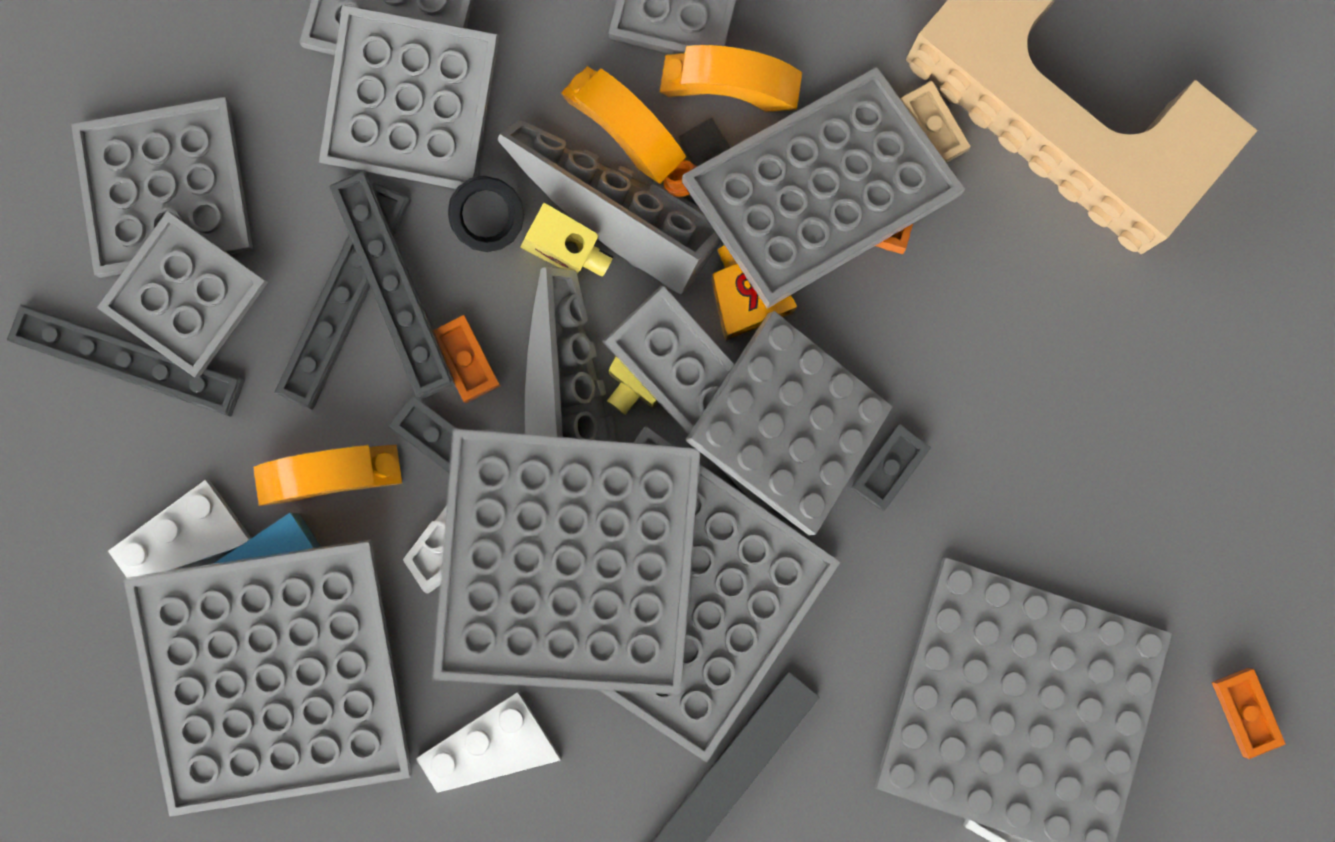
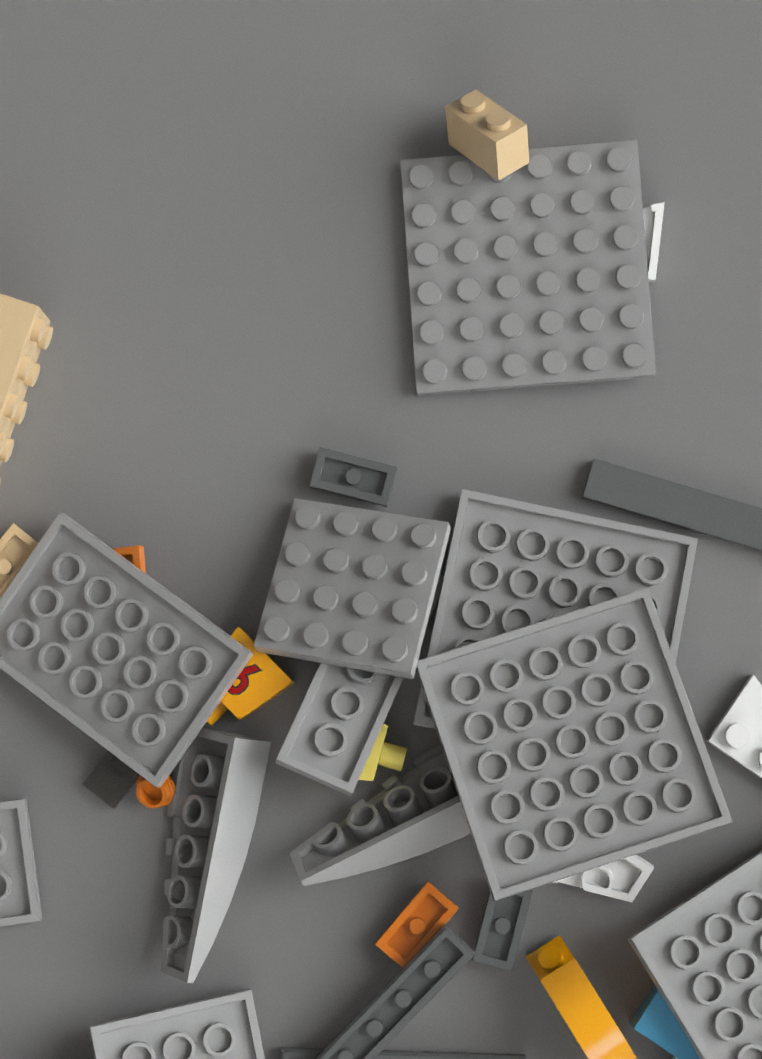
camera: 105 degrees left, 0 degrees up
(515, 218) = (295, 948): black tyre -> none
(548, 238) = (266, 893): light yellow torso -> none
(627, 121) = (122, 867): light orange arch -> none
(732, 73) = (35, 780): light orange arch -> none
(1169, 725) = (487, 134): none -> tan brick
(1248, 713) = (444, 65): orange plate -> none

